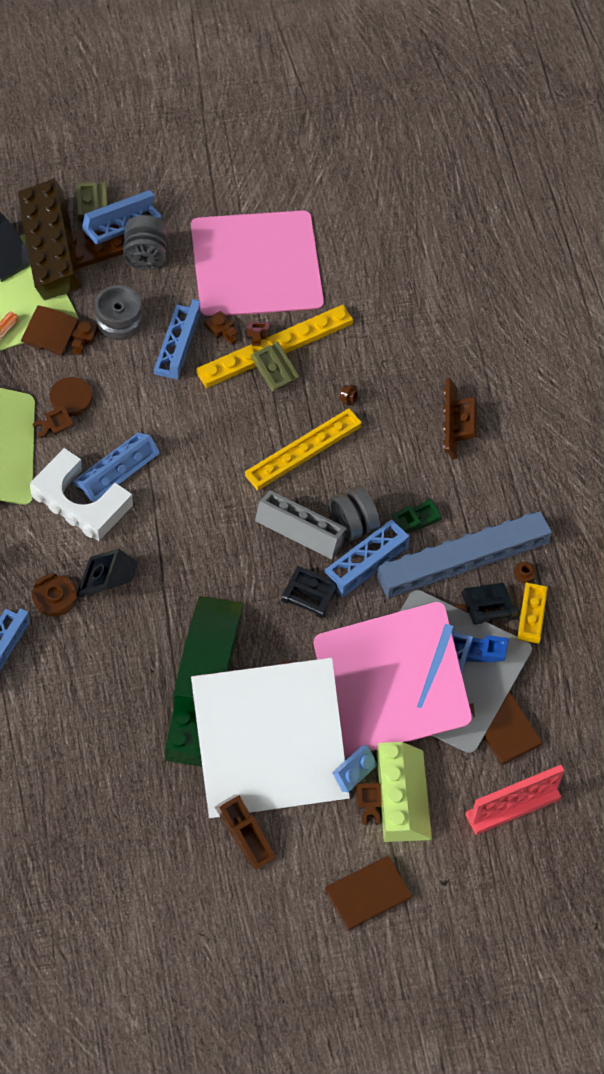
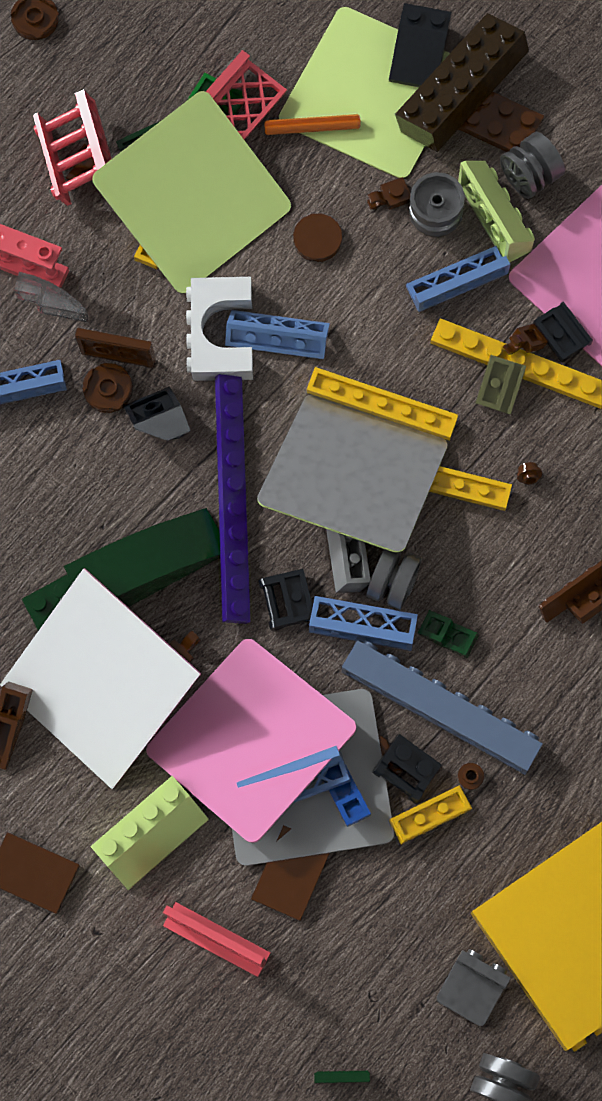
camera: 60 degrees right, 15 degrees up
(35, 562) = (115, 347): none -> reddish brown tile
(49, 329) = (369, 162): reddish brown slope -> none
(57, 421) = (278, 247): reddish brown plate -> none
(90, 197) = (544, 81): olive plate -> none
(117, 214) = (543, 114): medium blue fence -> none
(156, 286) = (494, 210): none -> yellowish green slope
(209, 574) = (232, 499): none -> dark purple plate
(220, 326) = (507, 303): reddish brown plate -> none
(223, 441) = (382, 403): none -> yellow plate
(260, 485) = (353, 473): none -> flat silver piece
(271, 309) = (563, 332): none -> black plate
(355, 768) = (136, 773): medium blue plate -> none
(369, 798) = (118, 807): reddish brown plate -> none

